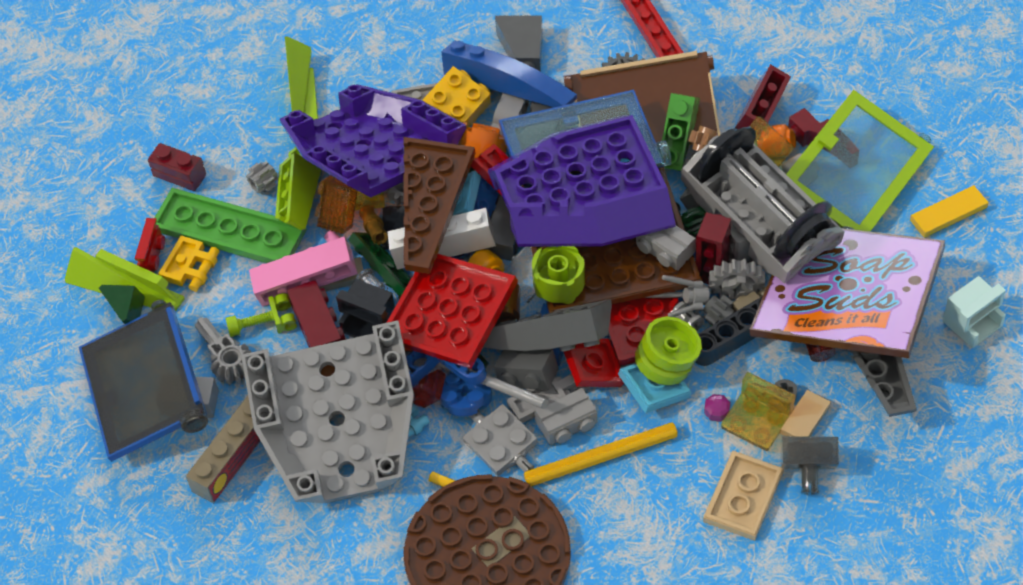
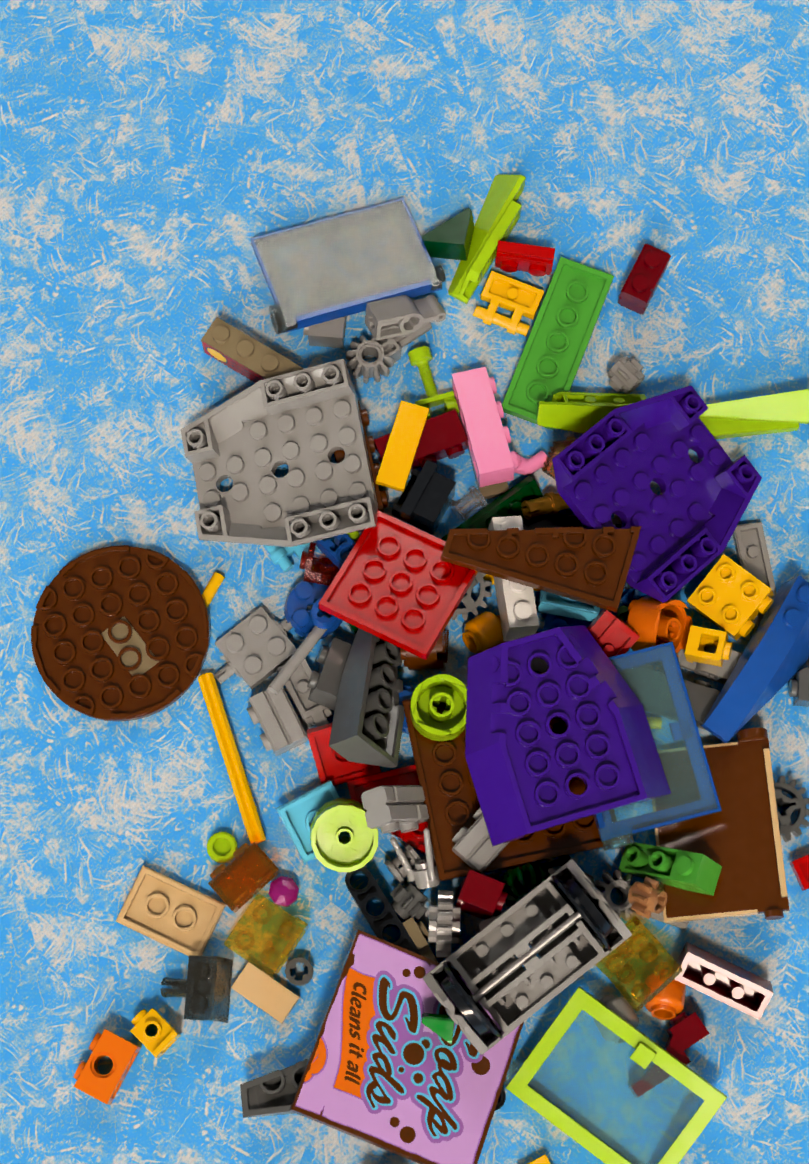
camera: 85 degrees right, 20 degrees up
(197, 331) = (401, 315): none -> light grey piece
(319, 323) = (402, 446): none -> yellow tile
(498, 107) = (700, 639): none -> yellow brick
(645, 305) = (395, 808): none -> light grey brick
(681, 458) = (222, 847): none -> lime tile
(707, 435) = (243, 876): none -> clear orange brick
(823, 261) = (440, 1024): none -> green slope
(851, 496) = (165, 1035): none -> yellow brick
(877, 519) = (122, 1055): none -> orange brick

